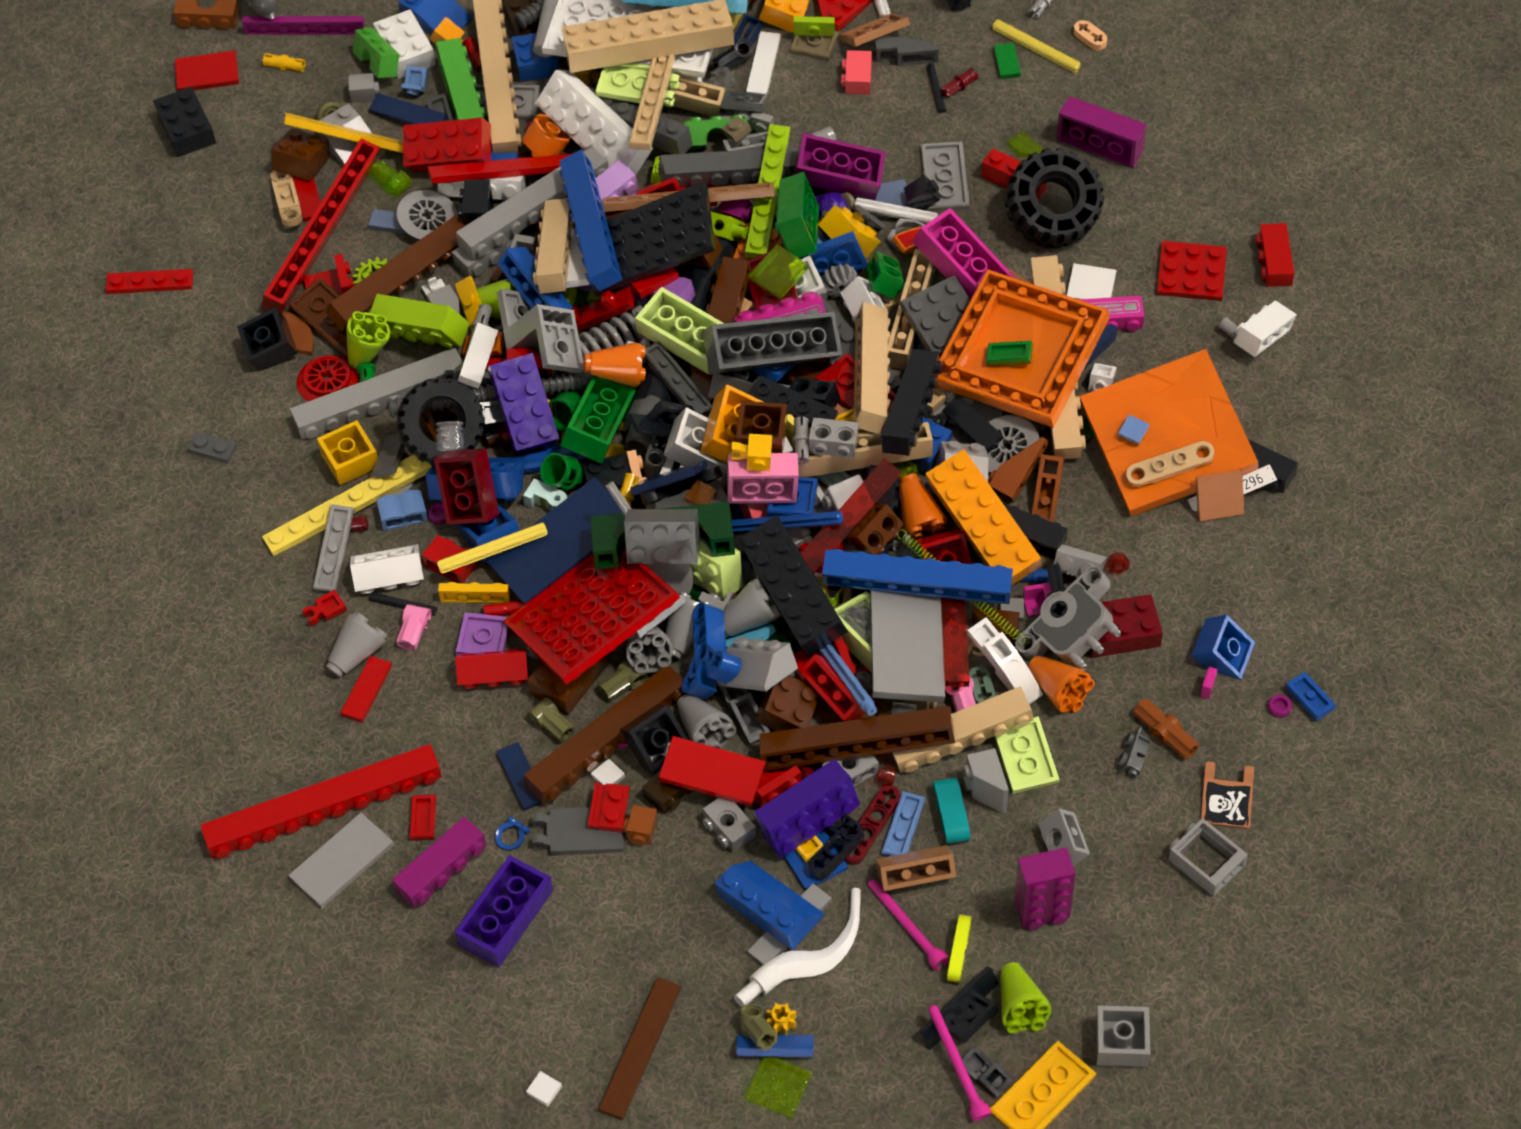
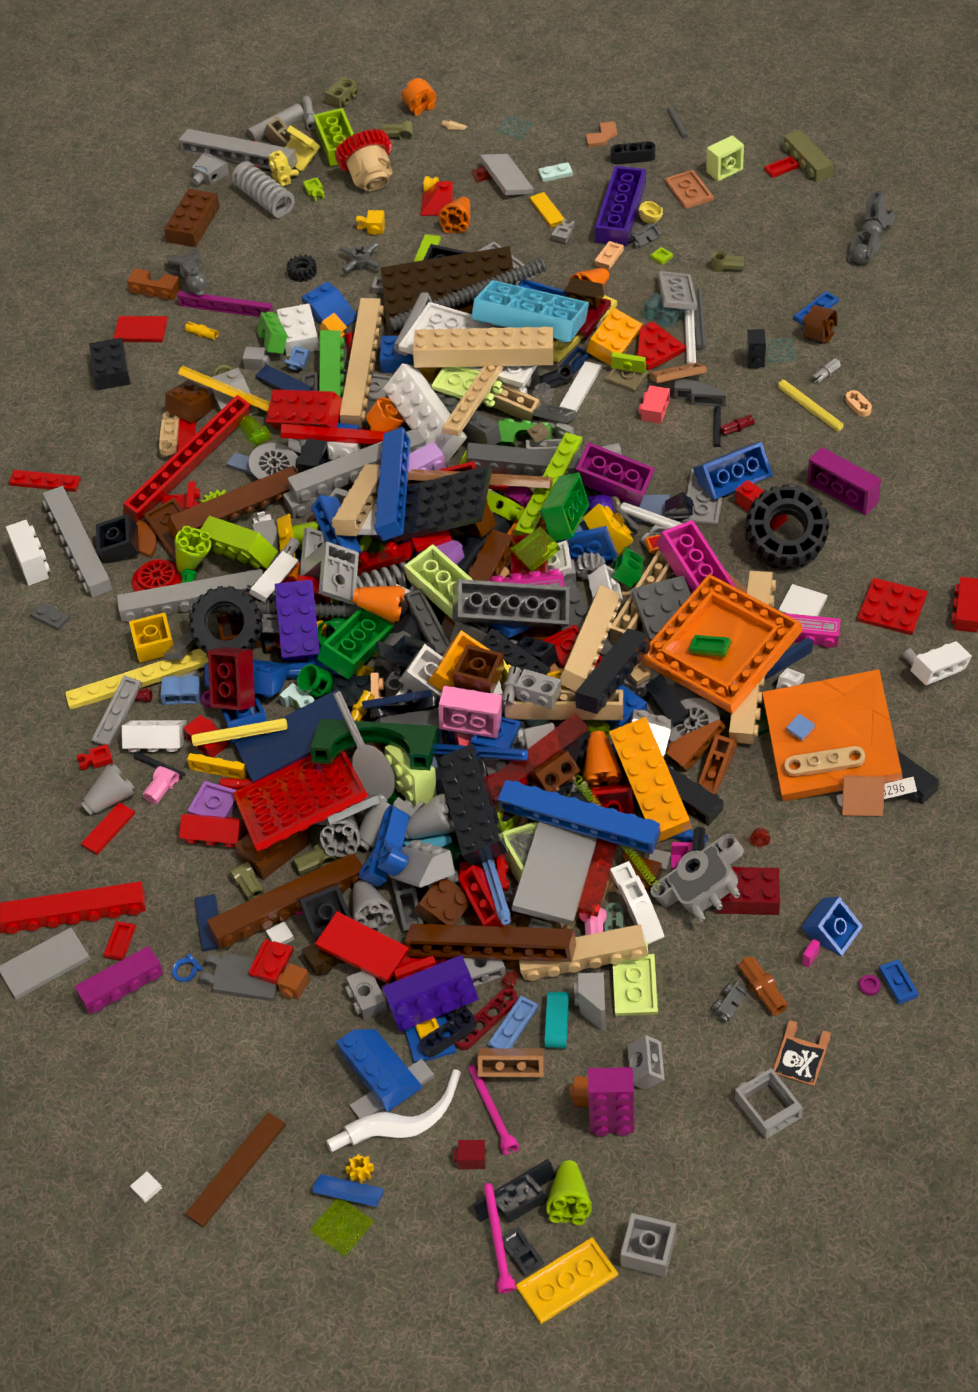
camera: 15 degrees right, 5 degrees down
(163, 373) = (28, 552): none -> white brick
(216, 350) = (77, 542): none -> light grey brick
(449, 436) = (226, 634): clear piece -> none
(504, 911) = (157, 1030): dark purple brick -> none
(662, 536) = (371, 744): dark grey brick -> none
(701, 494) = (418, 716): clear orange tile -> none
(756, 452) = (465, 689): yellow brick -> none
(756, 1027) = (335, 1170): olive piece -> none
(899, 978) = (470, 1154): none -> dark red brick
(959, 947) = (529, 1137): neon yellow beam -> none
(971, 138) = (732, 469): none -> blue slope
(1003, 883) = (579, 1091): none -> dark orange brick
(1007, 61) = (782, 413): green tile -> none
(1023, 145) = (776, 479): clear neon green tile -> none
(1062, 683) = (682, 930): orange cone -> none
(1076, 561) = (717, 826): light grey brick -> none

